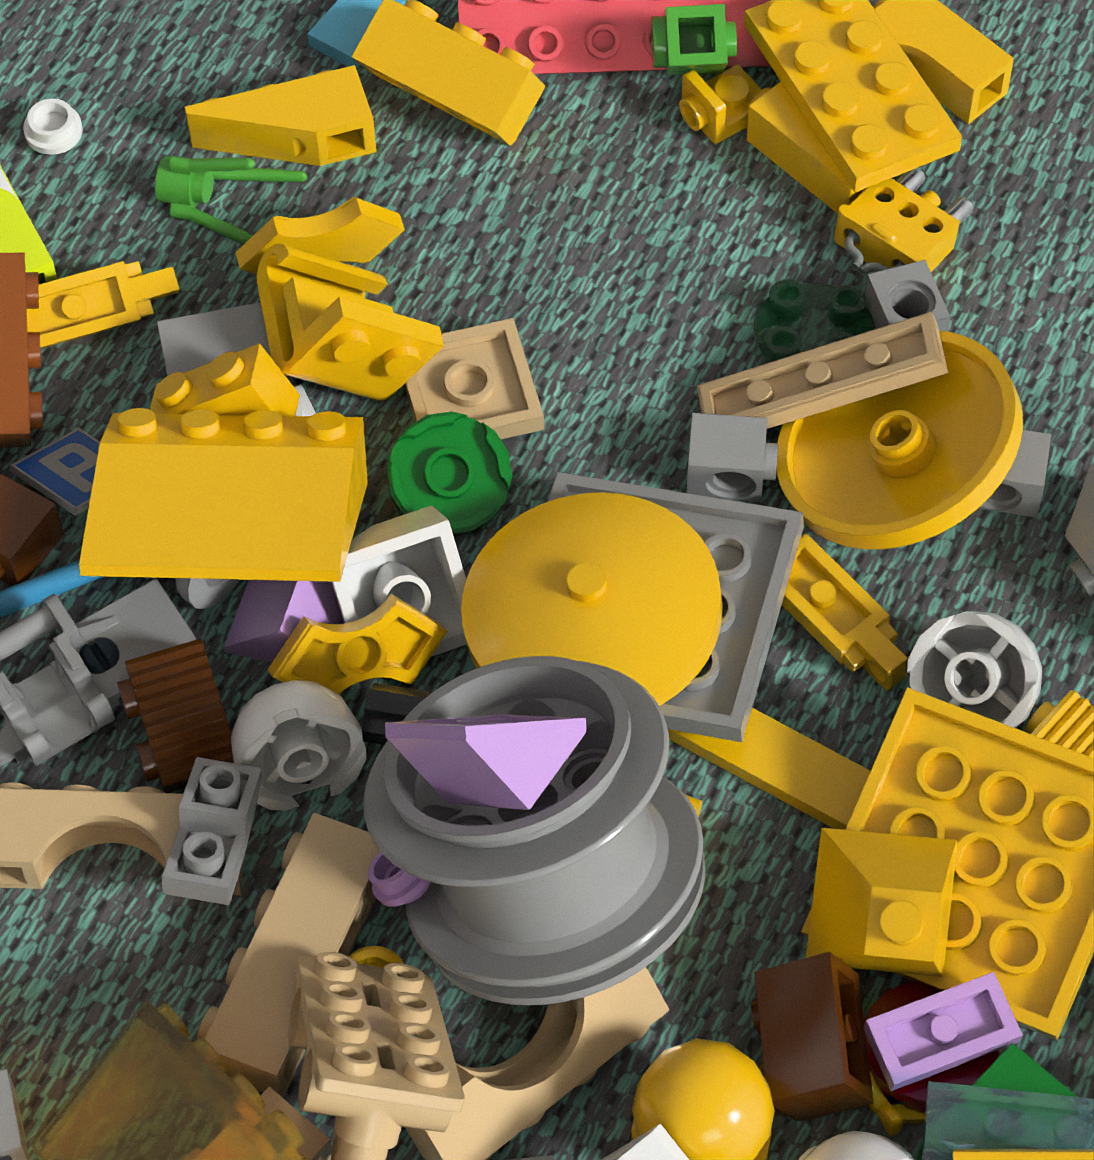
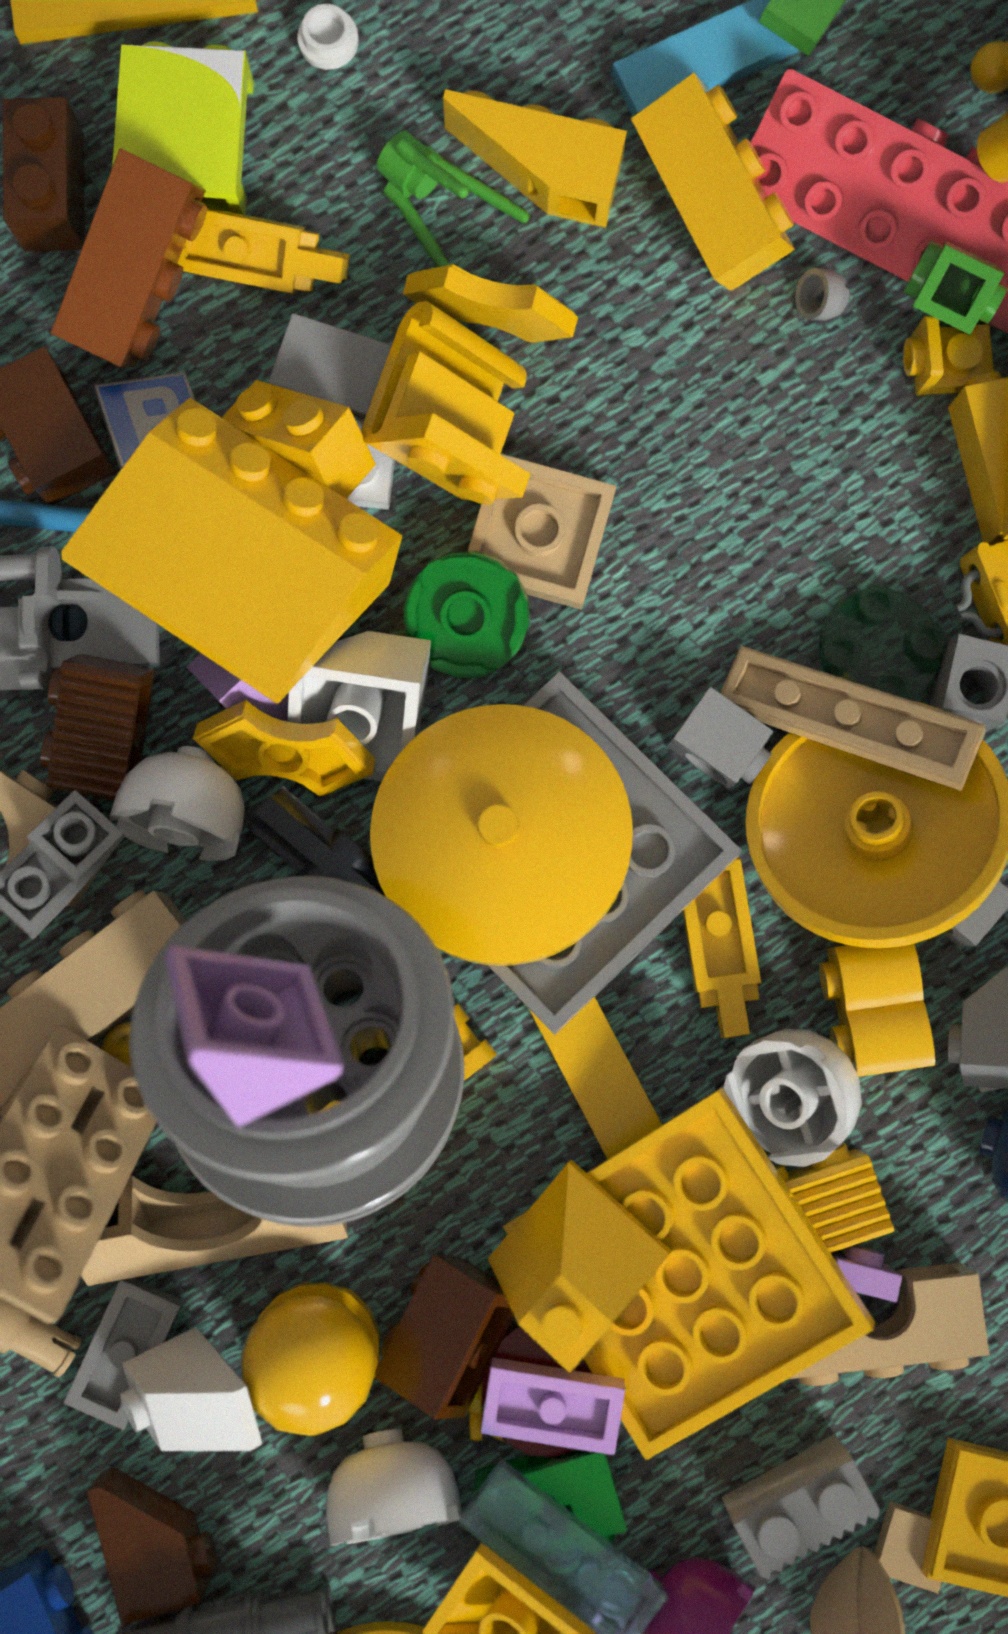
camera: 25 degrees right, 25 degrees up
(584, 101) = (819, 284): none -> light grey hinge
(997, 573) = (878, 1008): none -> yellow brick

